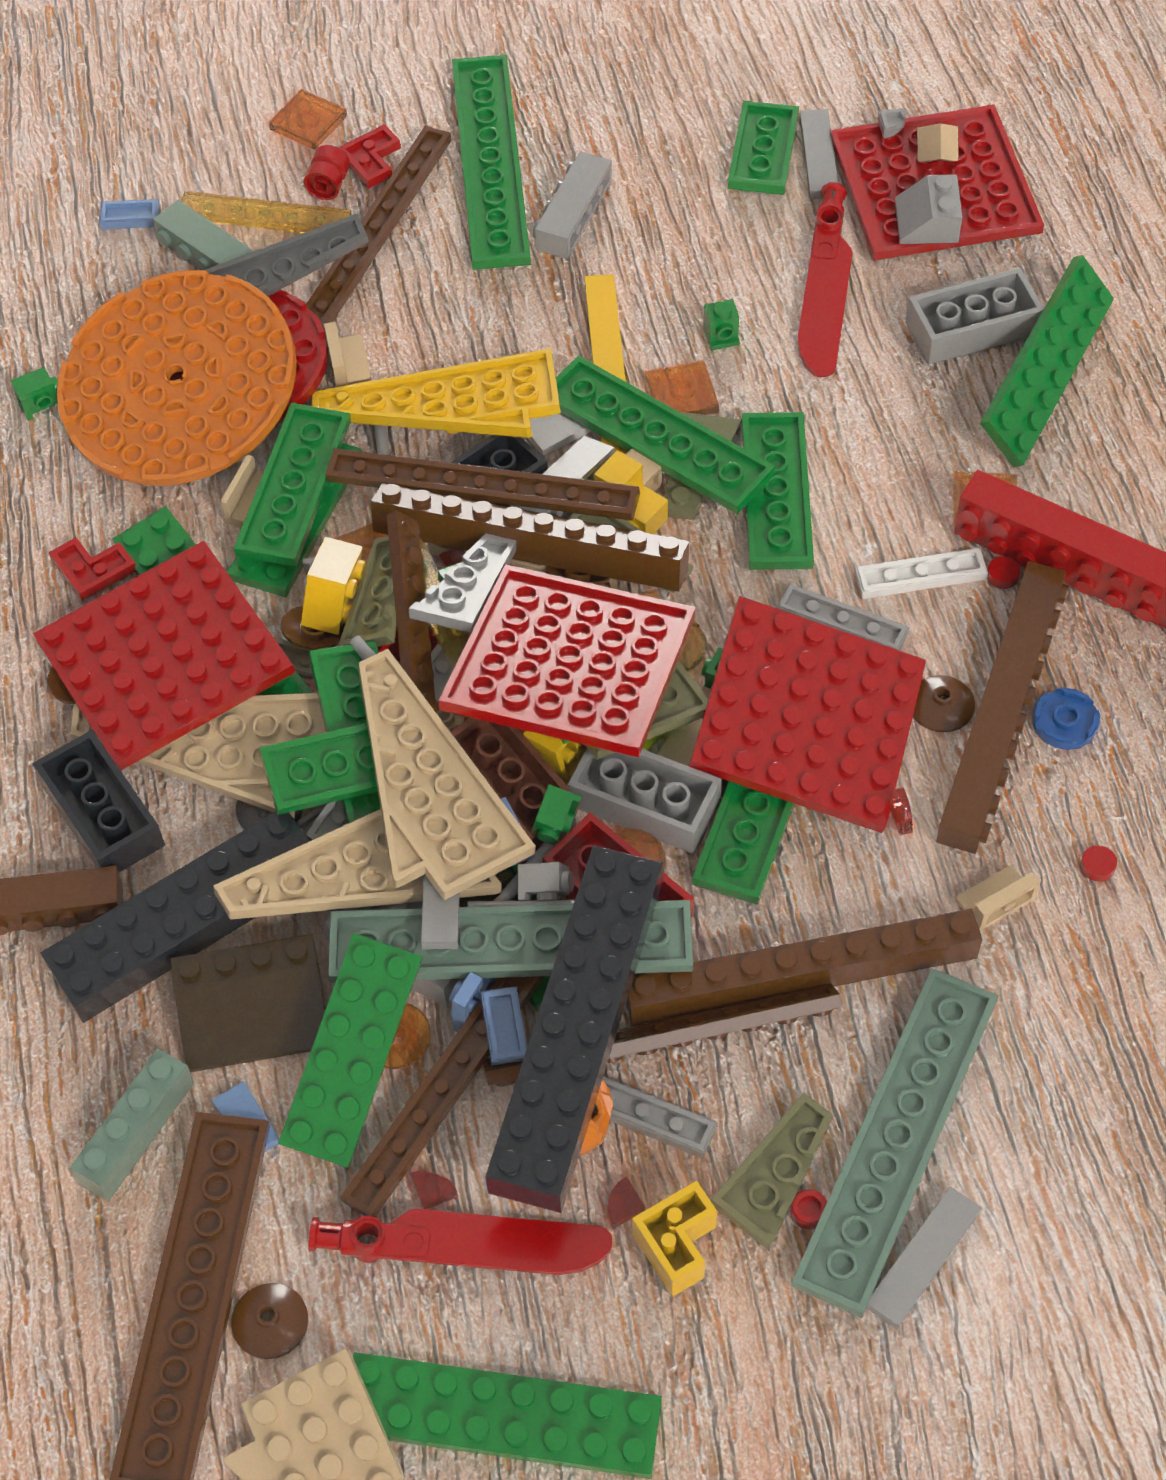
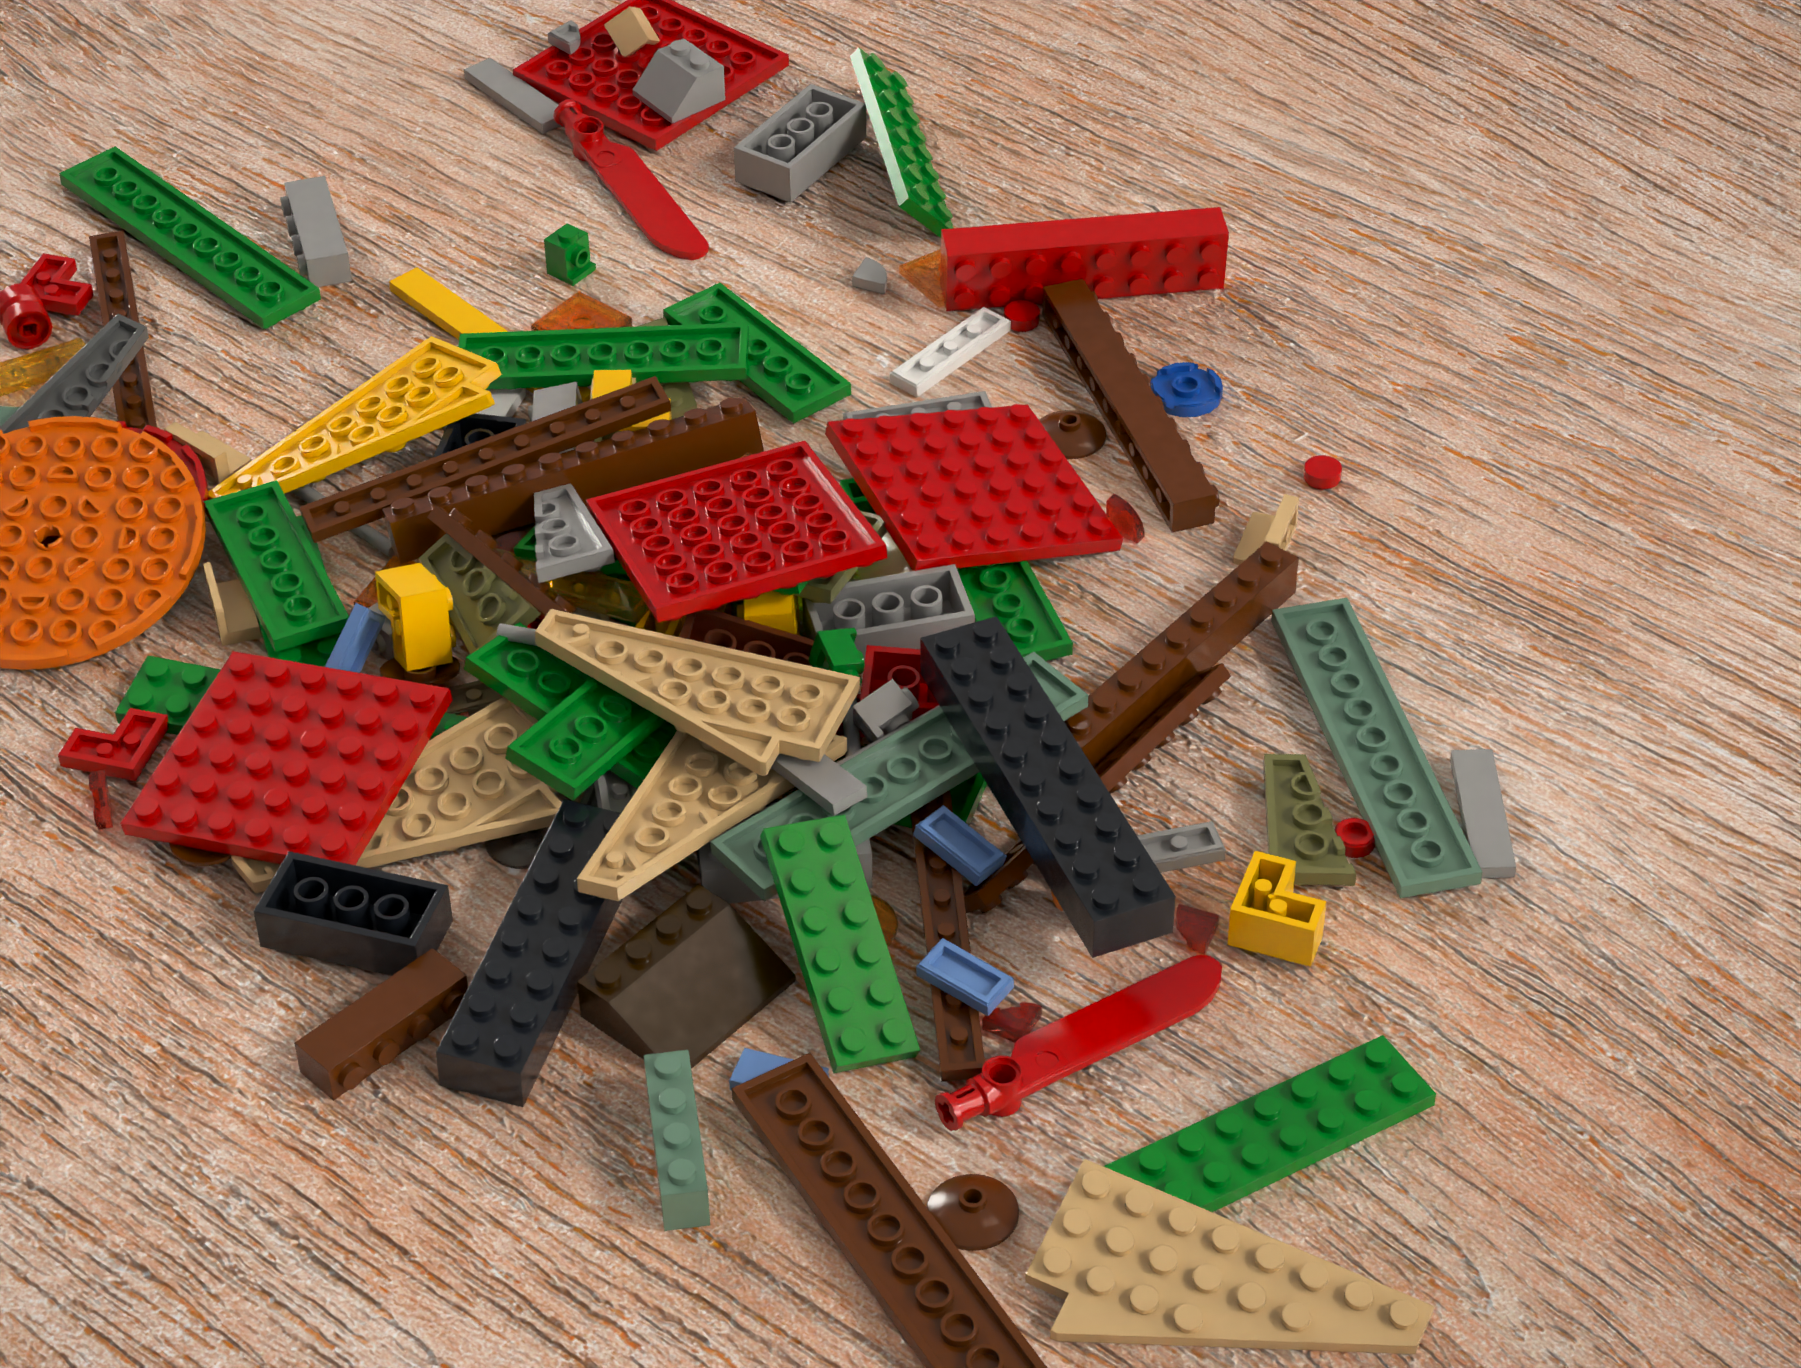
camera: 40 degrees left, 15 degrees down
(48, 604) = (102, 799): none -> clear red tile
(279, 583) = (356, 639): none -> medium blue tile
(414, 1136) = (965, 977): none -> medium blue tile
(466, 997) = (901, 847): medium blue plate -> none
(763, 147) = (459, 111): green plate -> none
(924, 468) = (870, 276): none -> light grey tile

